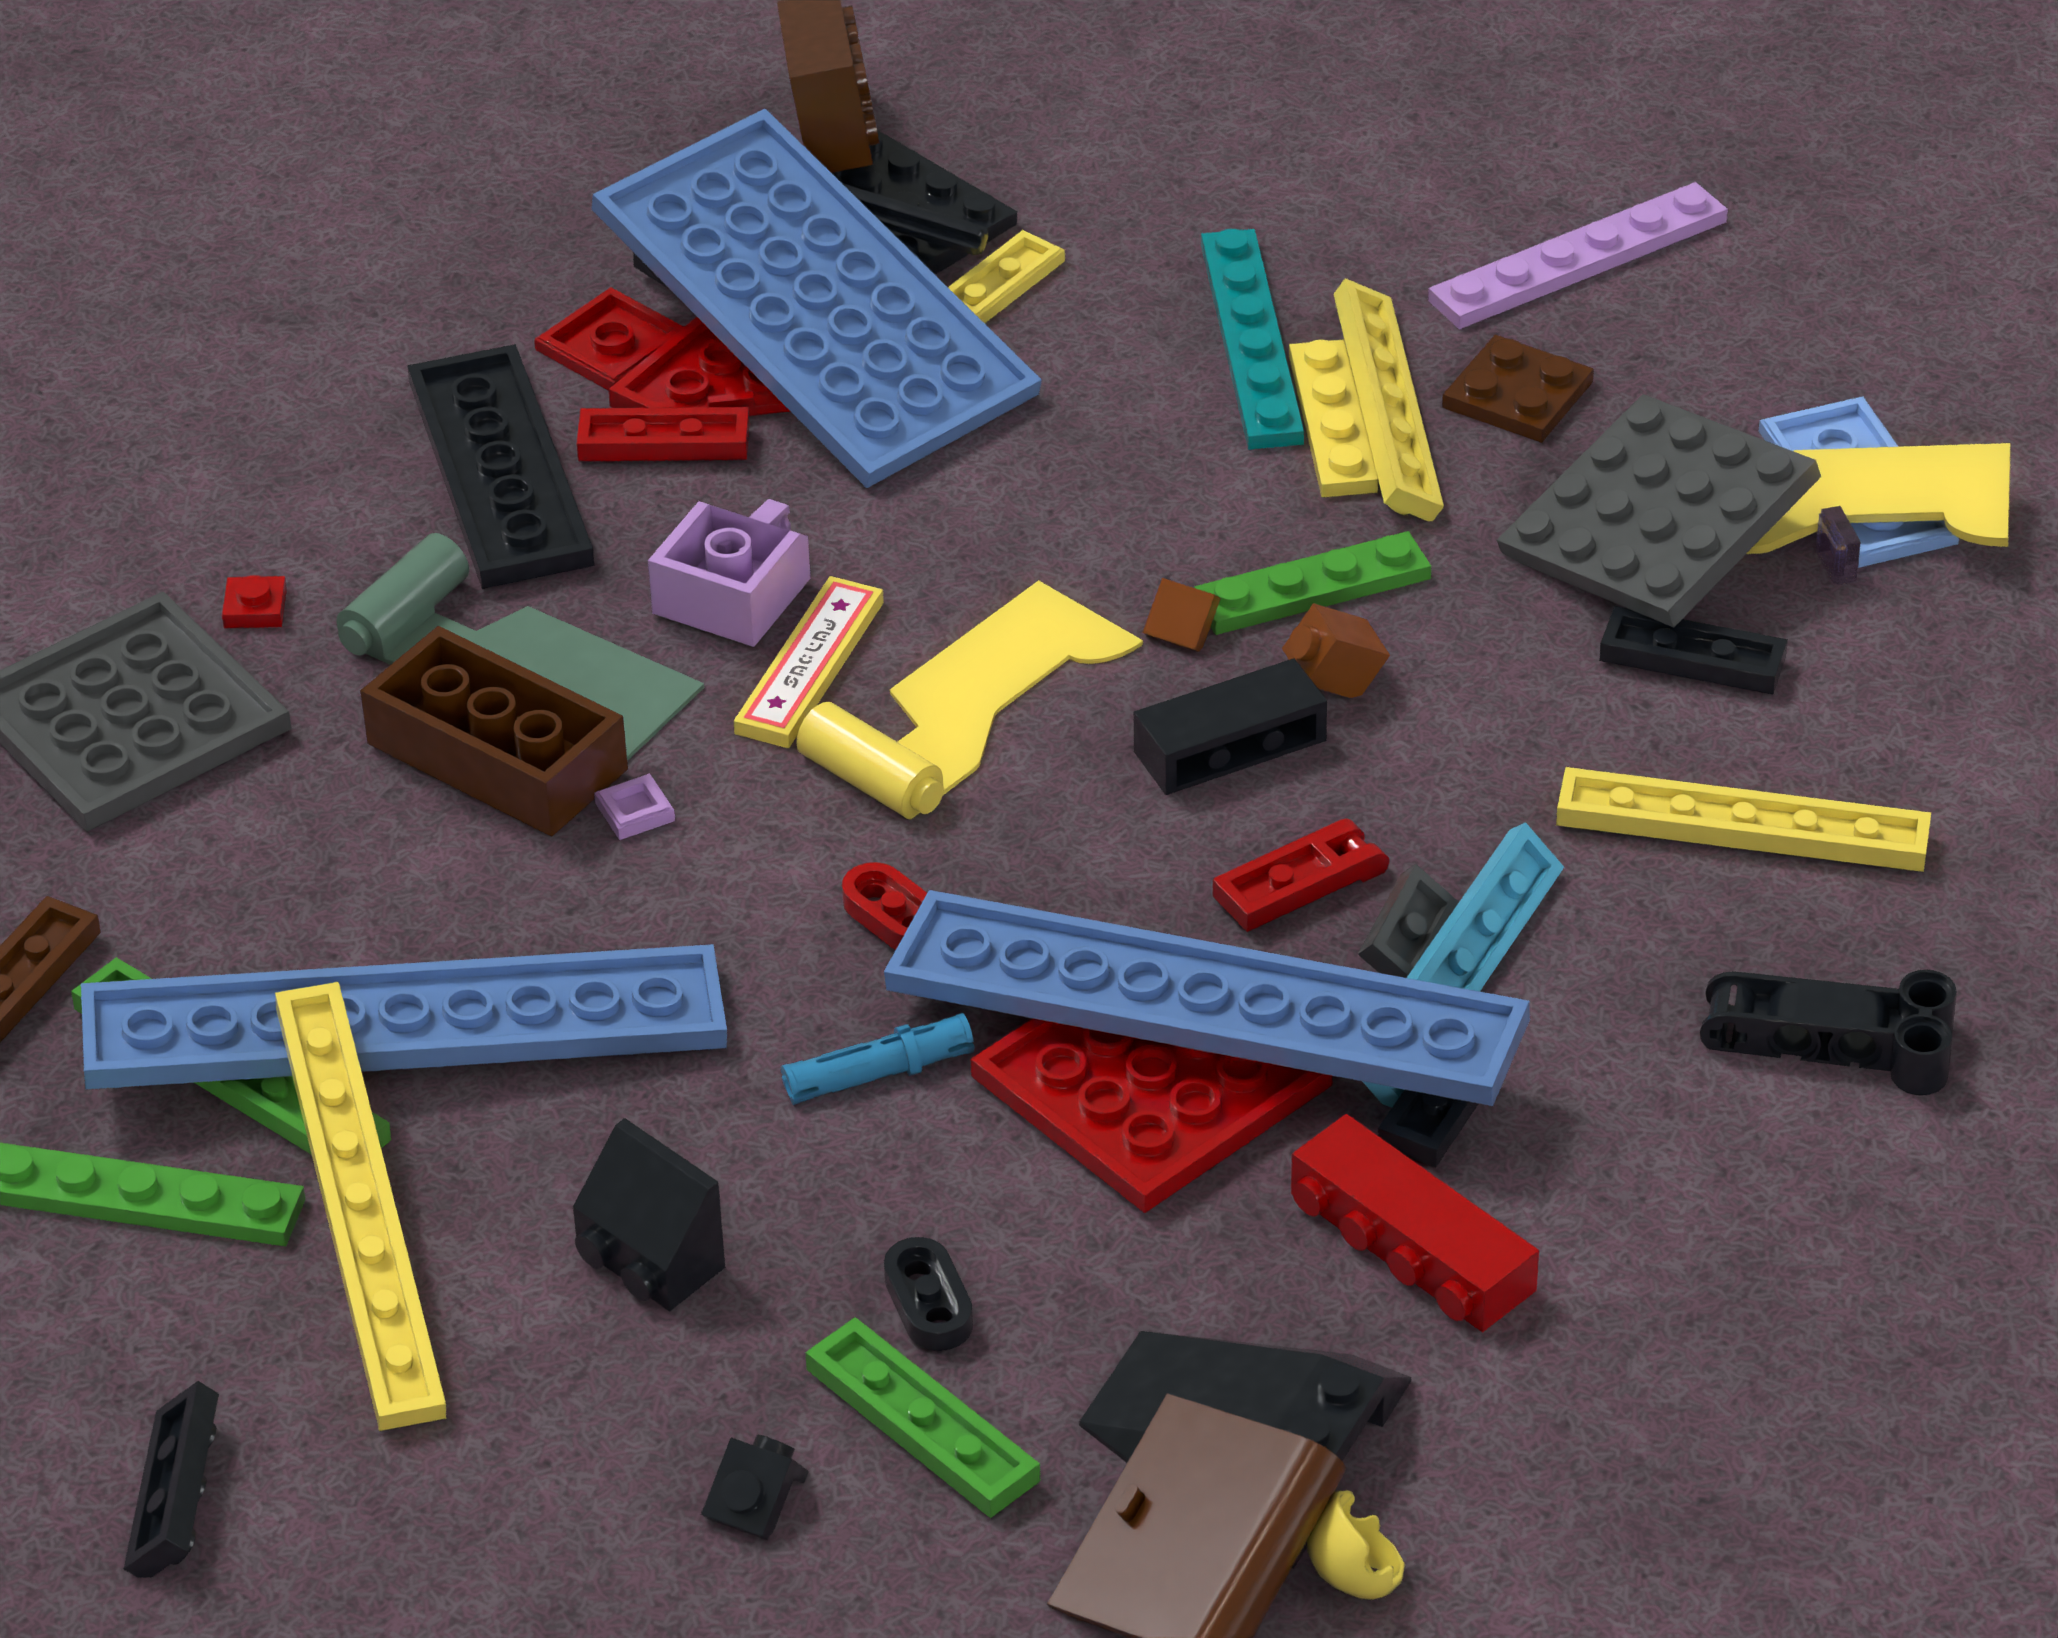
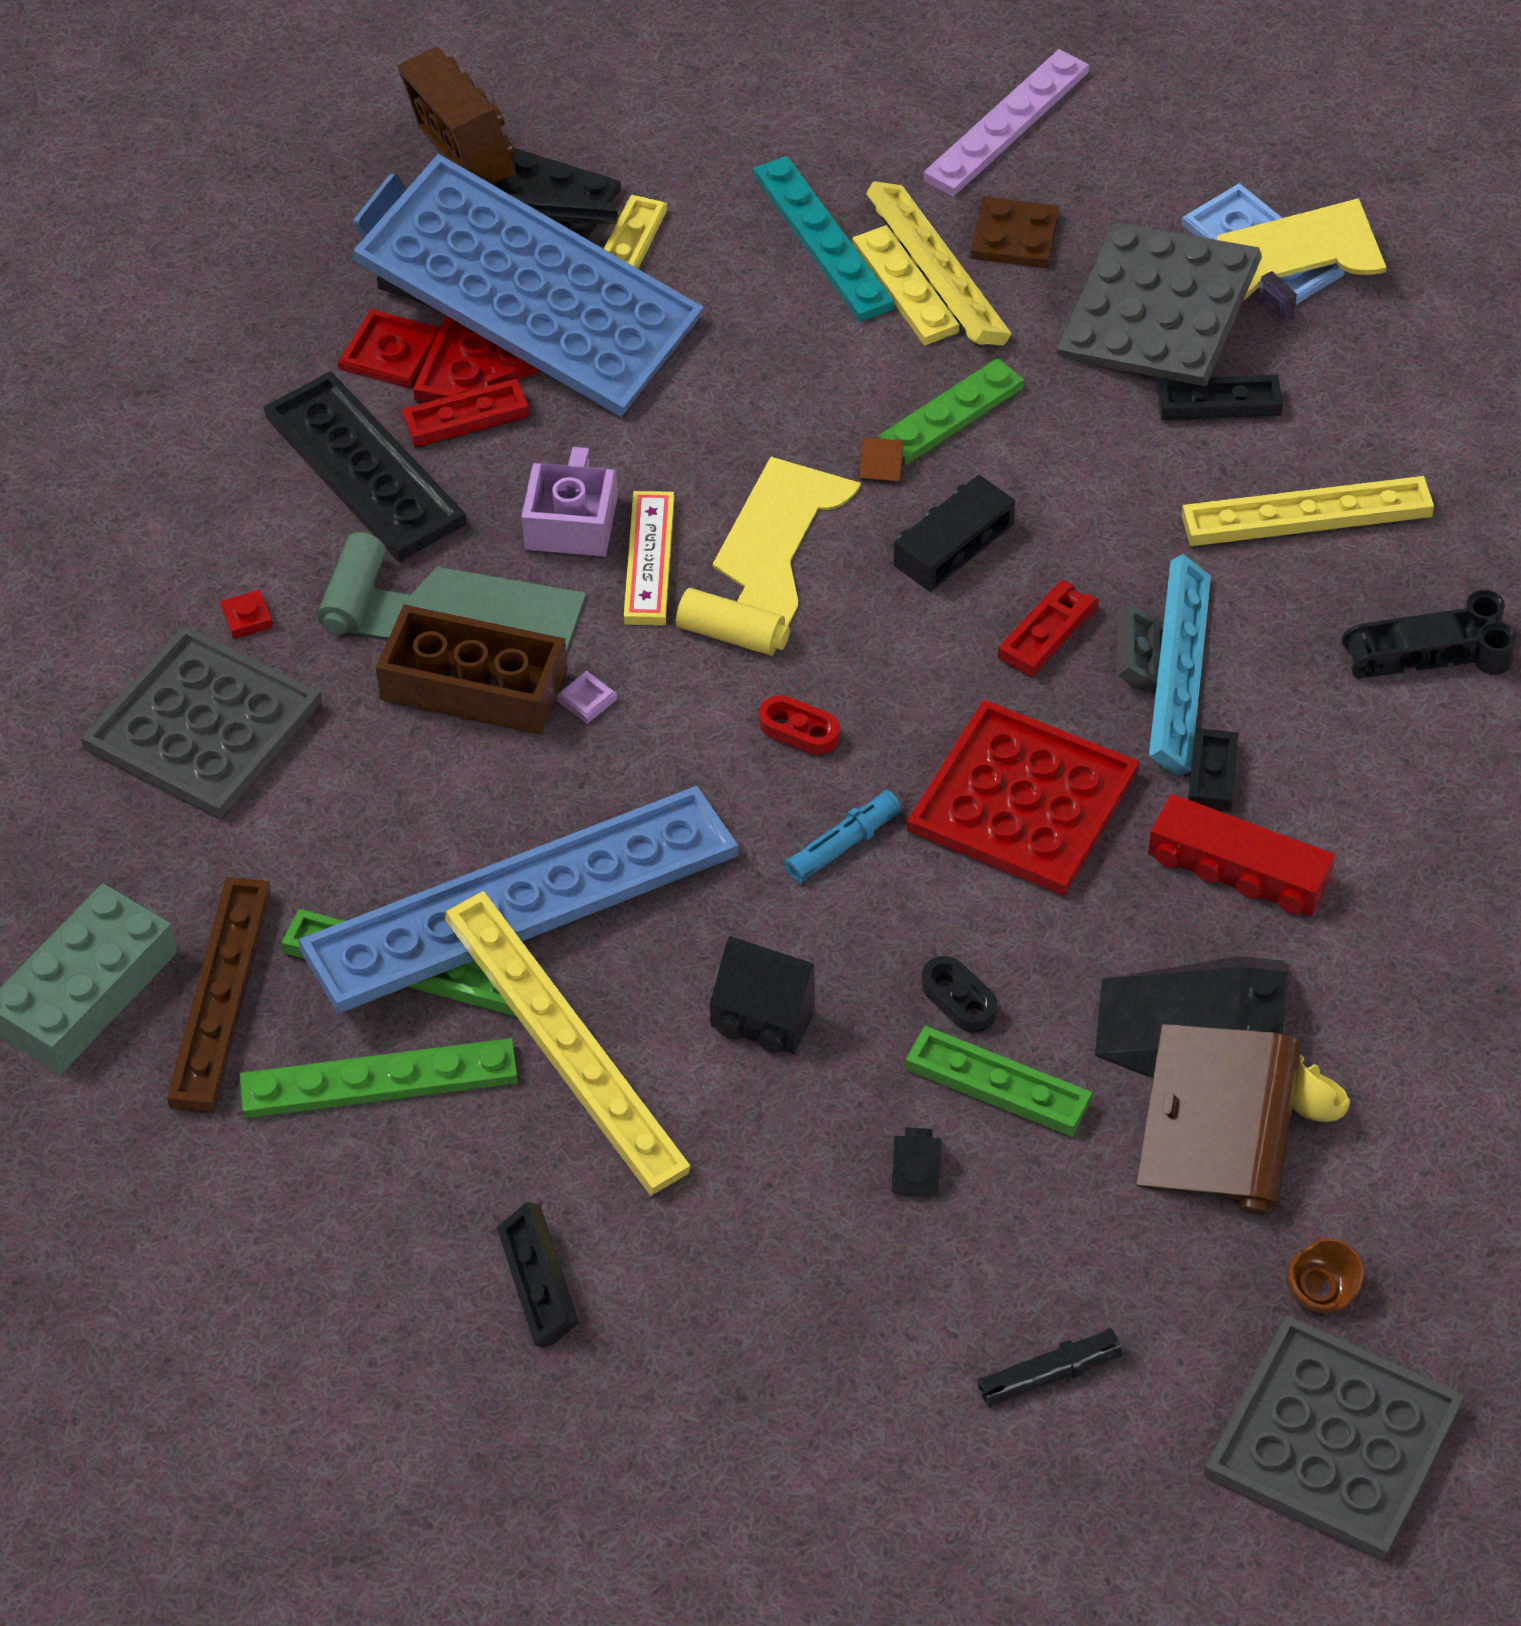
camera: 20 degrees left, 10 degrees up
(1210, 997) = (1045, 736): medium blue plate -> none
(1336, 650) = (999, 459): dark orange brick -> none

